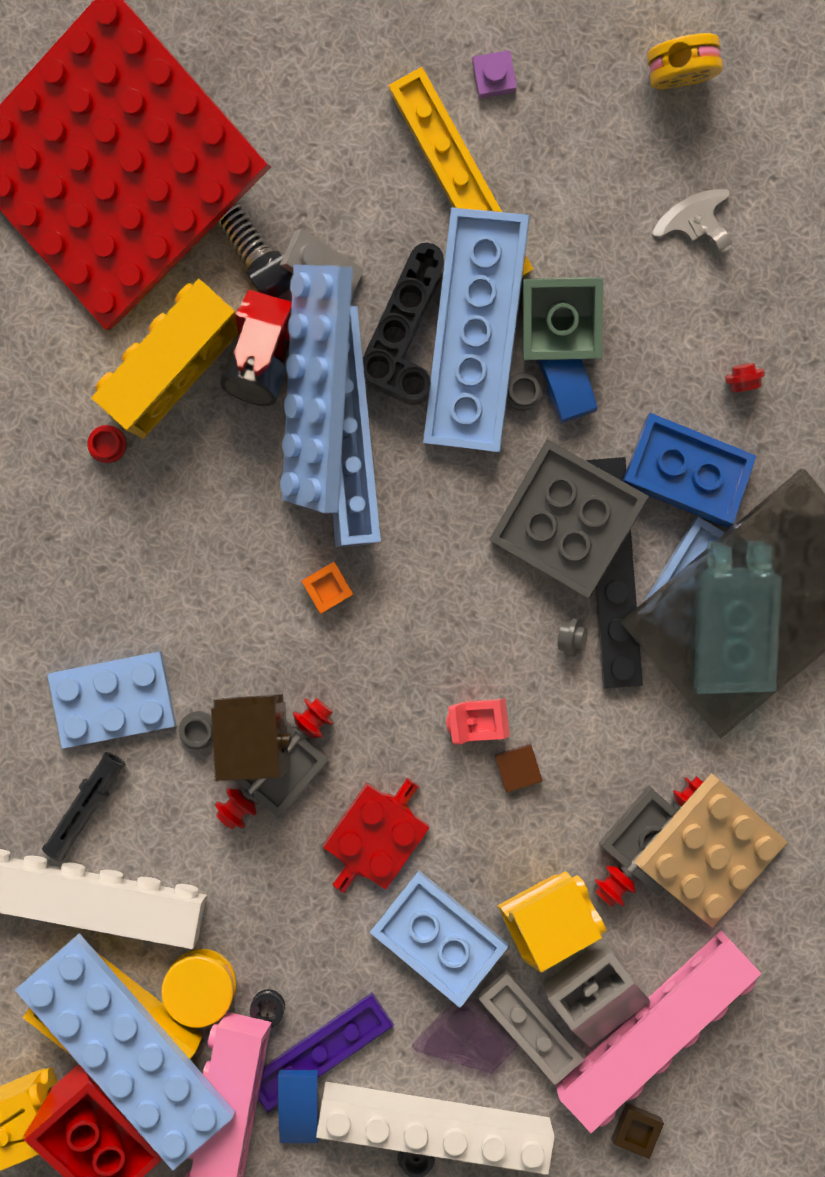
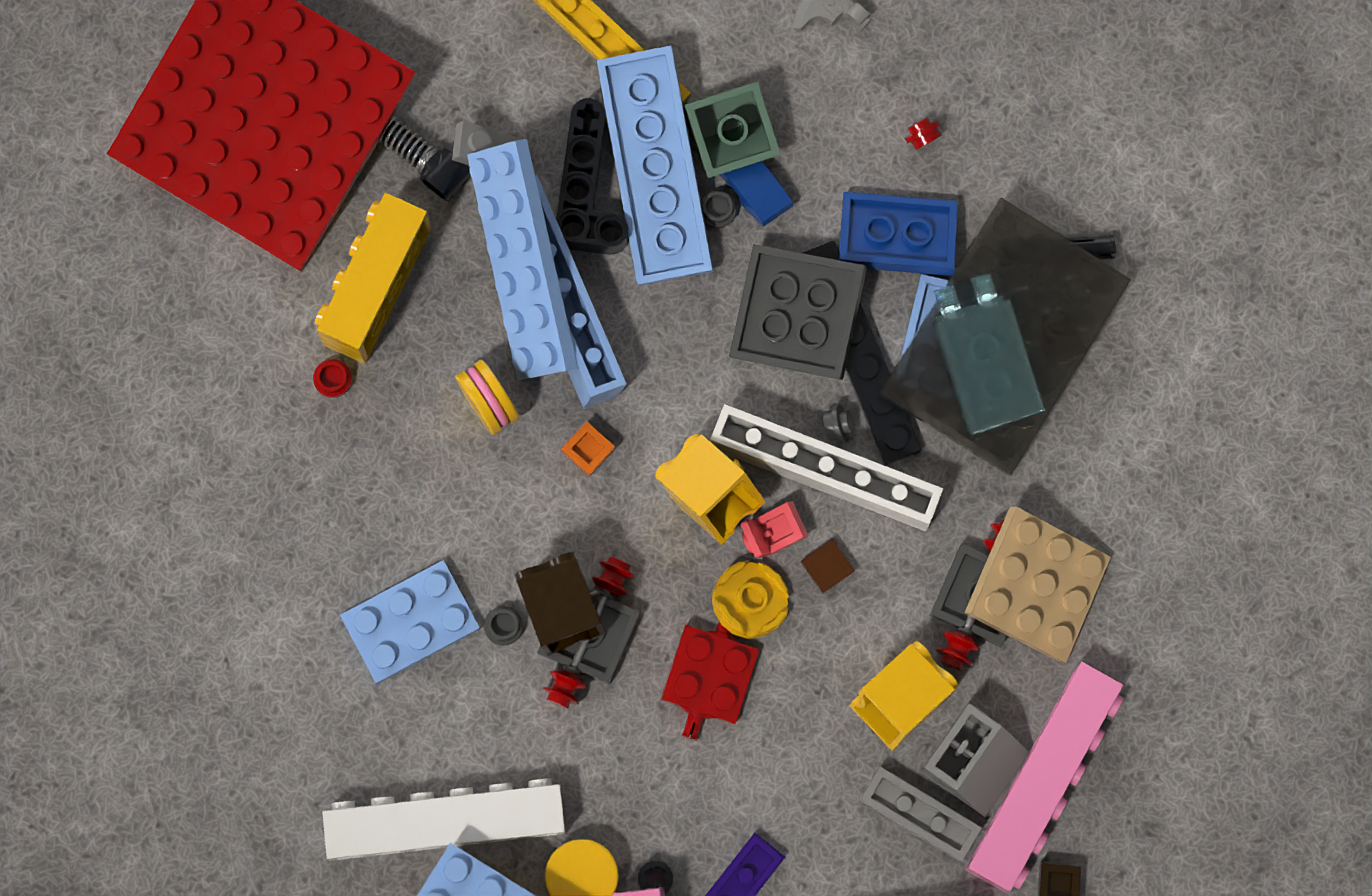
camera: 20 degrees left, 10 degrees down
(108, 770) = (426, 687): black pin -> none
(244, 510) = (487, 397): none -> yellow head
(256, 364) = (456, 259): piece -> none
(429, 666) = (709, 487): none -> yellow piece
(436, 778) = (750, 599): none -> yellow tile
(439, 938) = (802, 753): light blue plate -> none
(466, 1038) = (861, 846): clear purple wing -> none
(548, 679) = (825, 468): none -> white brick

